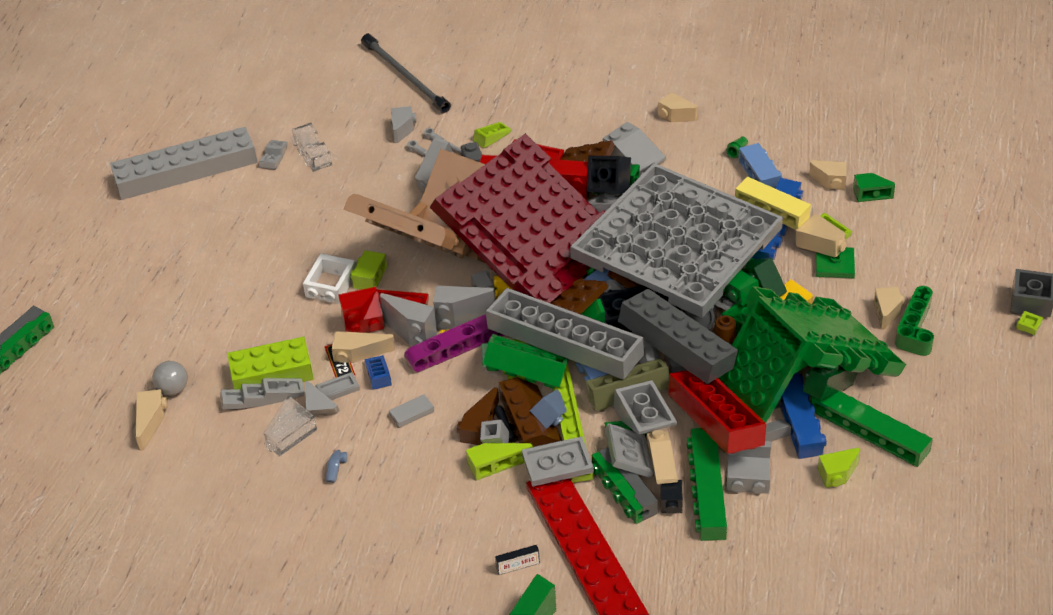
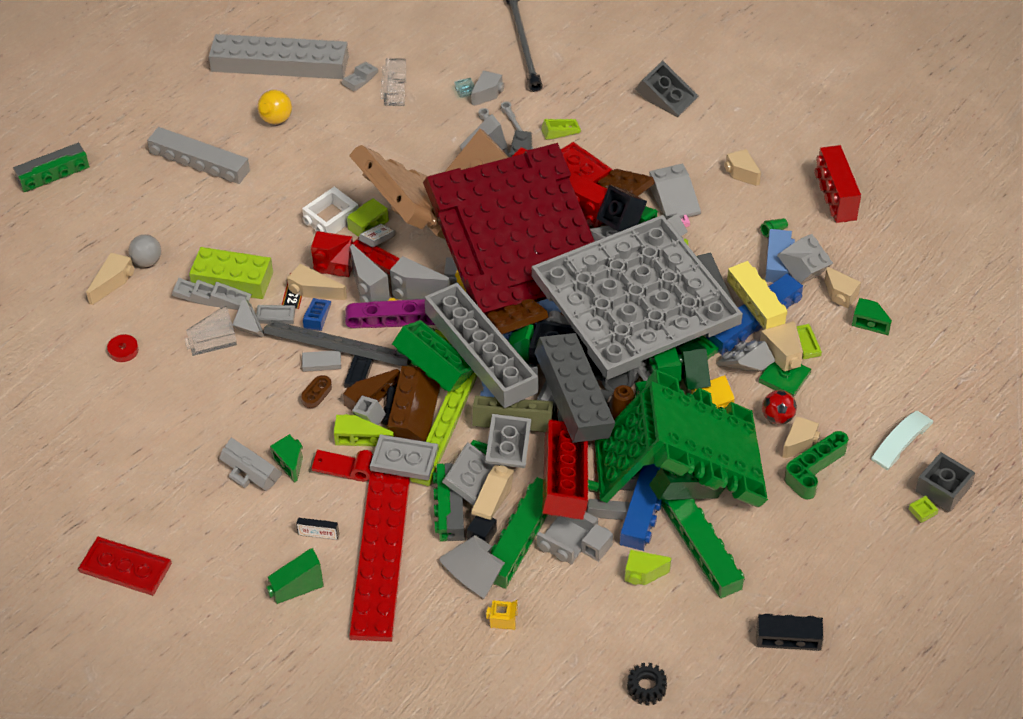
camera: 25 degrees right, 5 degrees up
(162, 275) = (198, 155): none -> light grey brick
(199, 482) = (129, 346): none -> red piece
(212, 206) = (274, 107): none -> yellow brick
(333, 465) = (227, 381): sand blue arm -> none
(380, 129) = (464, 87): none -> clear light blue plate
(389, 281) = (376, 235): none -> tile
(412, 528) = (245, 460): none -> light grey piece
(417, 389) = (336, 343): none -> dark grey tile
(427, 439) = (314, 394): none -> reddish brown plate
(442, 507) = (288, 455): none -> green slope
(453, 406) = (358, 370): none -> black tile
(514, 491) = (344, 466): none -> red door
(550, 409) = (429, 408): sand blue slope -> none
(564, 70) = (666, 90): none -> dark grey slope
(689, 528) = (473, 565): none -> light grey slope
(744, 561) = (503, 614): none -> yellow window
(769, 92) = (838, 184): none -> red brick
(781, 463) = (597, 542): none -> light grey brick
(788, 159) = (805, 259): none -> light grey slope
(797, 256) = (748, 356): none -> light grey slope
(854, 287) = (779, 407): none -> red piece
(913, 555) = (642, 694): none -> black tyre
(968, 276) = (900, 438): none -> light aqua slope
(1000, 468) = (789, 632): none -> black brick

